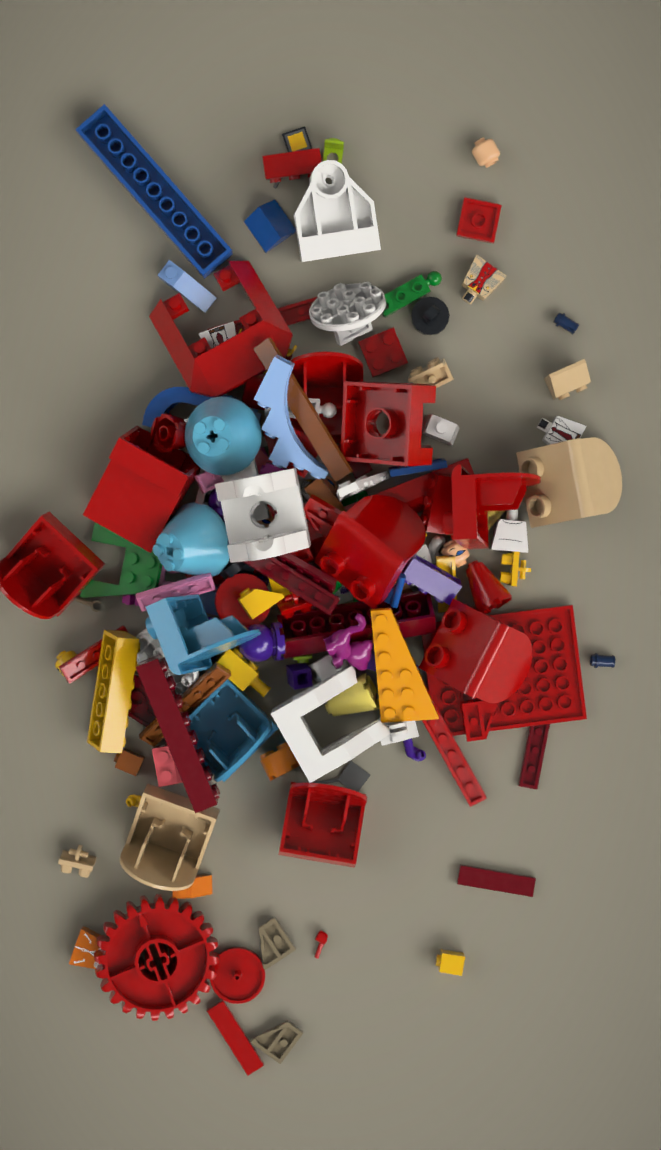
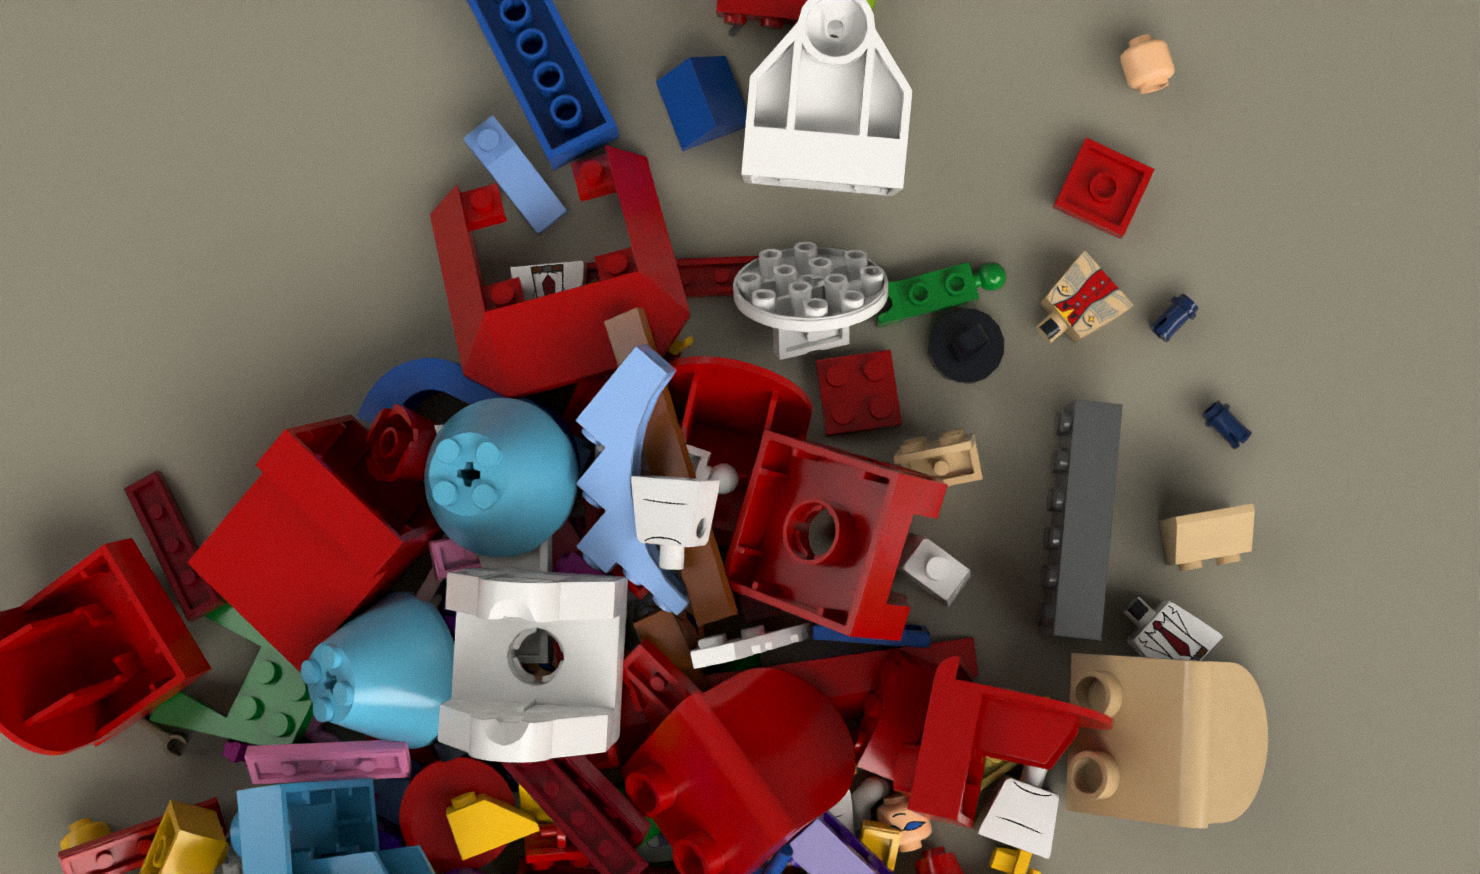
camera: 20 degrees right, 5 degrees down
(68, 510) = (172, 544): none -> dark red tile
(311, 431) = (673, 514): none -> white torso
(505, 387) = (1080, 520): none -> dark grey brick
(528, 276) = (1174, 317): none -> dark blue pin

